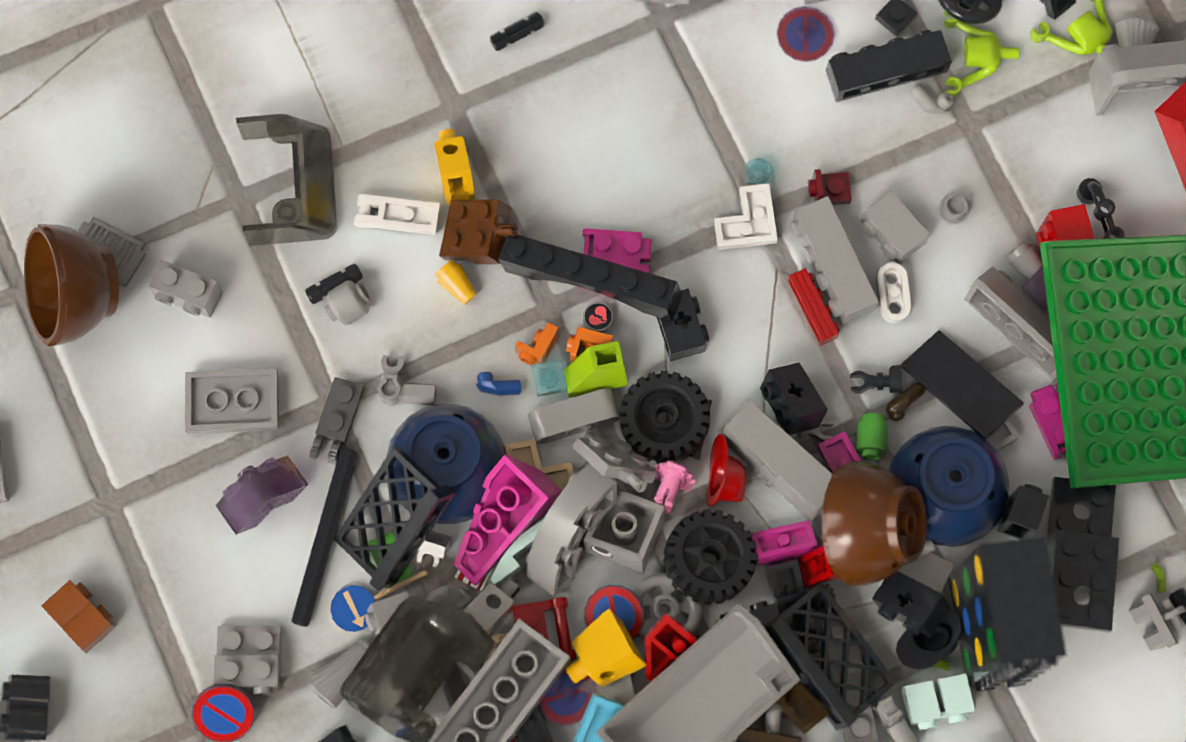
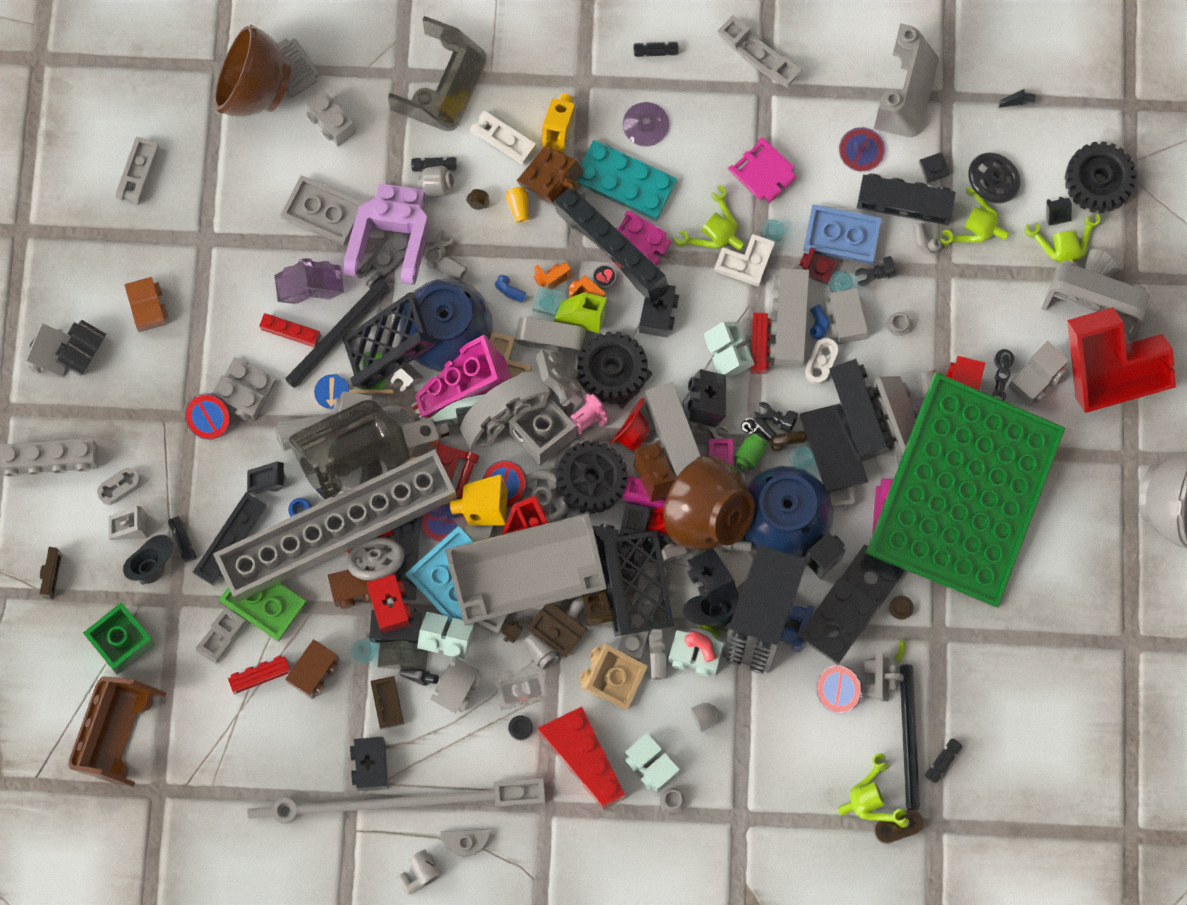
camera: 30 degrees right, 0 degrees up
(266, 560) = (290, 330): none -> red piece
(316, 360) = (392, 210): none -> lavender plate
(407, 299) = (478, 199): none -> dark brown plate
(553, 133) = (641, 133): none -> clear purple dish
(563, 195) = (625, 180): none -> teal plate
(698, 200) = (717, 228): none -> lime piece
(713, 110) = (764, 171): none -> dark pink plate
(774, 320) = (723, 342): none -> light aqua piece
(780, 514) = (654, 471): none -> reddish brown brick
(838, 138) = (842, 234): none -> medium blue plate
(848, 598) = (672, 553): none -> light grey plate
(863, 401) = (758, 425): none -> black arm
(865, 193) = (840, 281): none -> clear light blue tile
(869, 250) = (821, 323): none -> blue arm
(908, 153) = (878, 272): none -> black piece
(937, 407) = (801, 450): none -> clear light blue plate
(944, 686) = (702, 642): none -> coral arm
(967, 326) = (859, 409): none -> black brick
(1120, 658) = (839, 689): none -> piece
(1134, 528) = (901, 607): none -> dark brown plate
(1140, 183) = (1043, 369): none -> light grey brick

